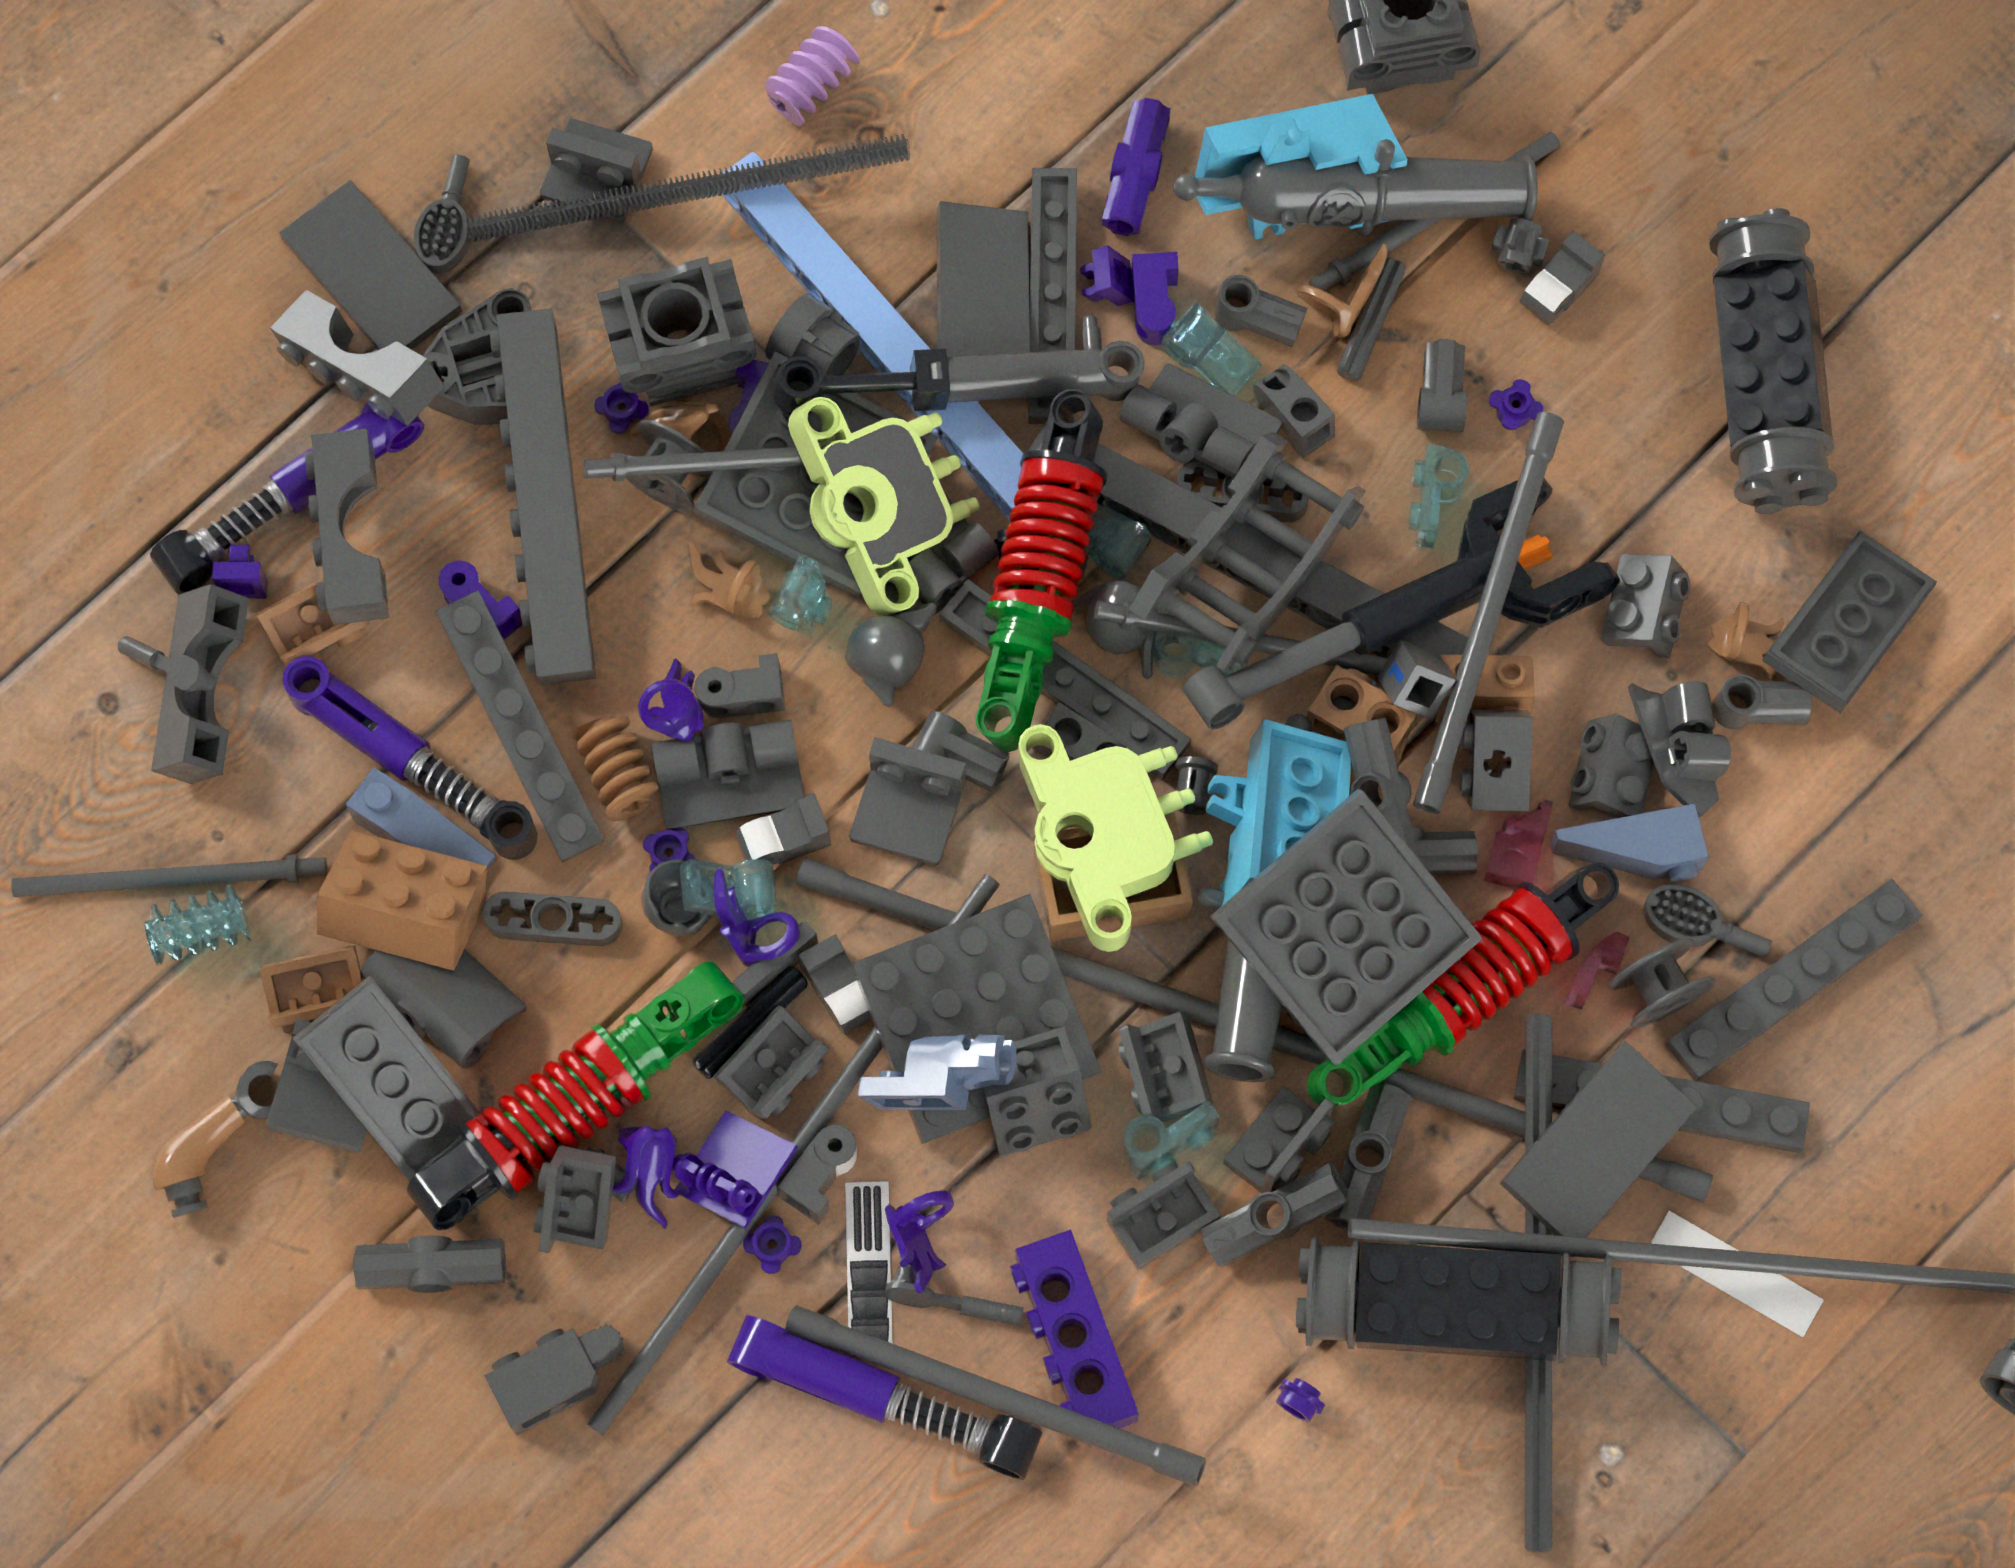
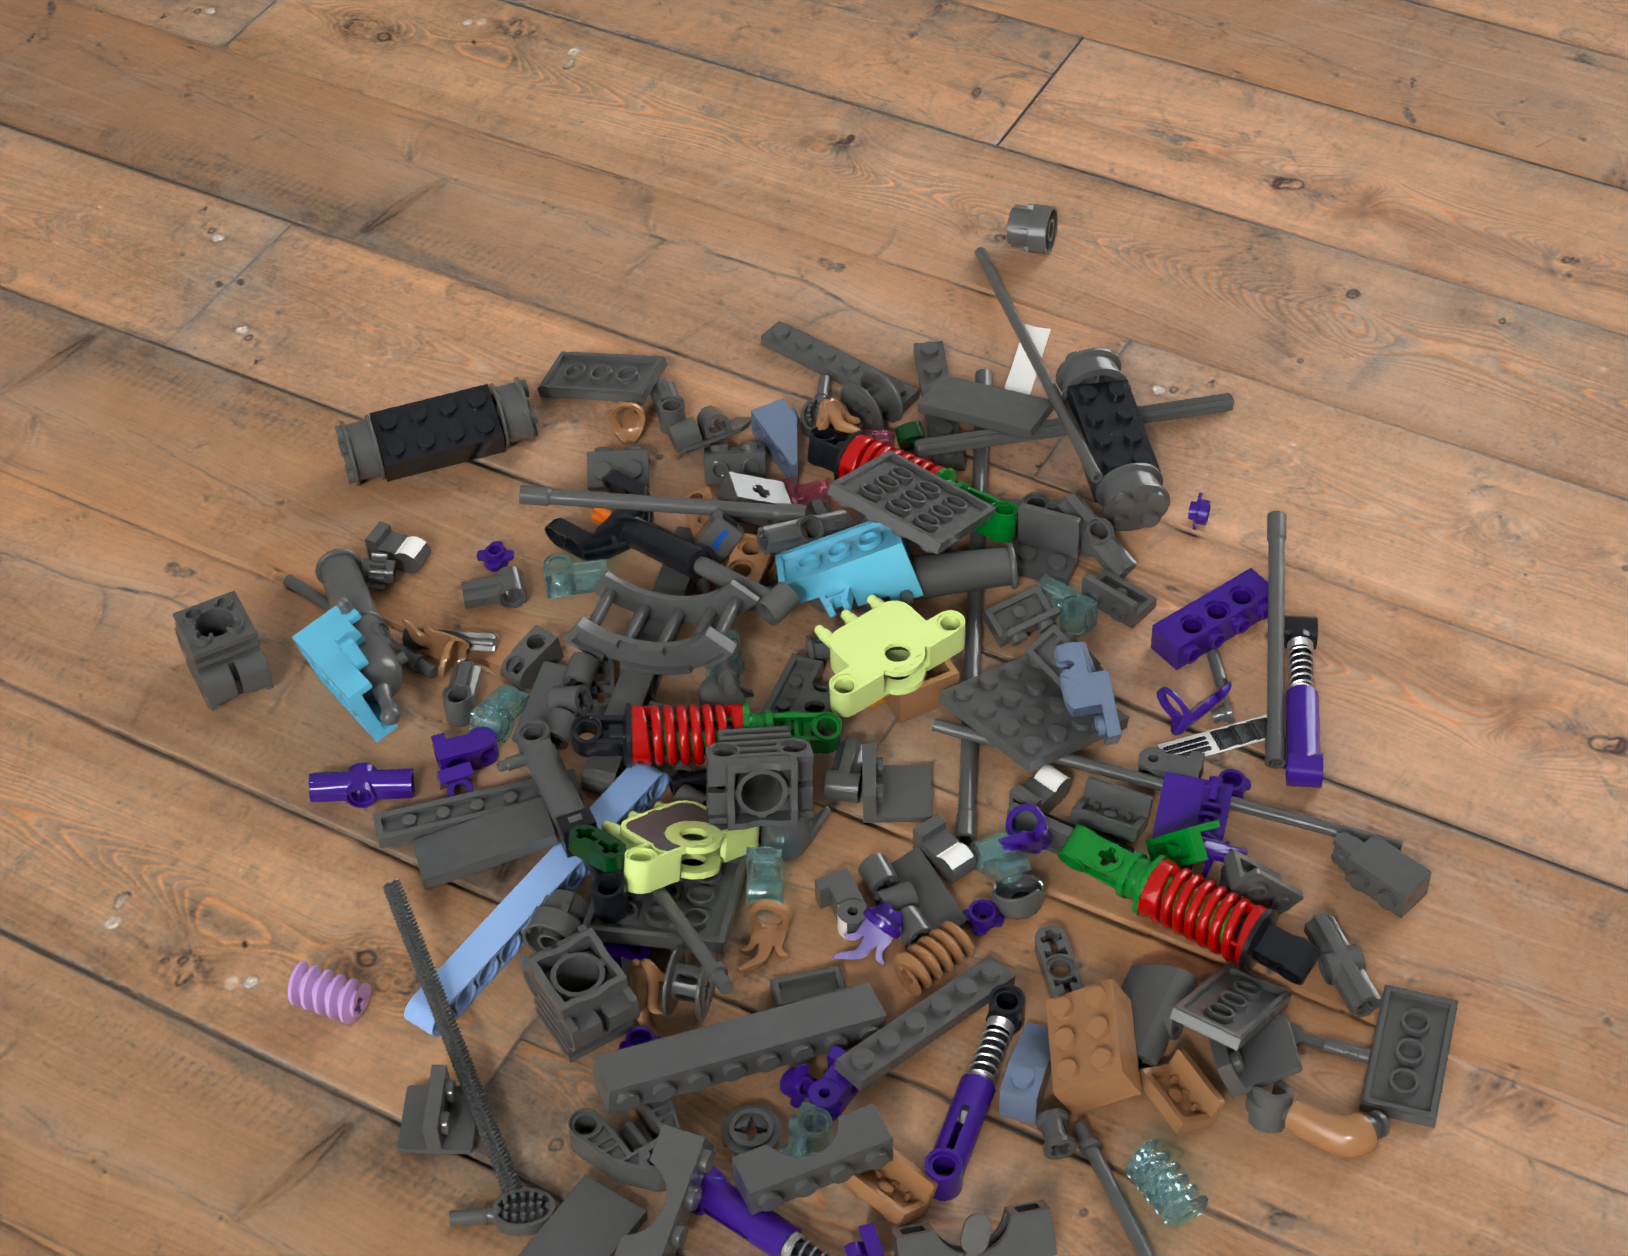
camera: 105 degrees left, 25 degrees down
(278, 1297) = (1409, 1056): none -> dark grey tile
(317, 829) = (1056, 1133): none -> dark grey bush
(357, 1168) = (1329, 1045): none -> dark grey piece
(410, 542) = (802, 1141): none -> clear light blue plate
(444, 480) = (737, 1125): none -> dark grey gear
(493, 560) = (796, 1084): none -> dark purple plate
(635, 617) = (806, 985): none -> dark grey tile
(672, 1123) = (1183, 845): none -> green panel
(857, 367) = (597, 848): none -> dark green beam
(921, 598) = (772, 799): none -> dark grey piece
(1572, 1018) = (908, 433): none -> dark green beam
(1642, 917) = (837, 414): none -> medium nougat piece

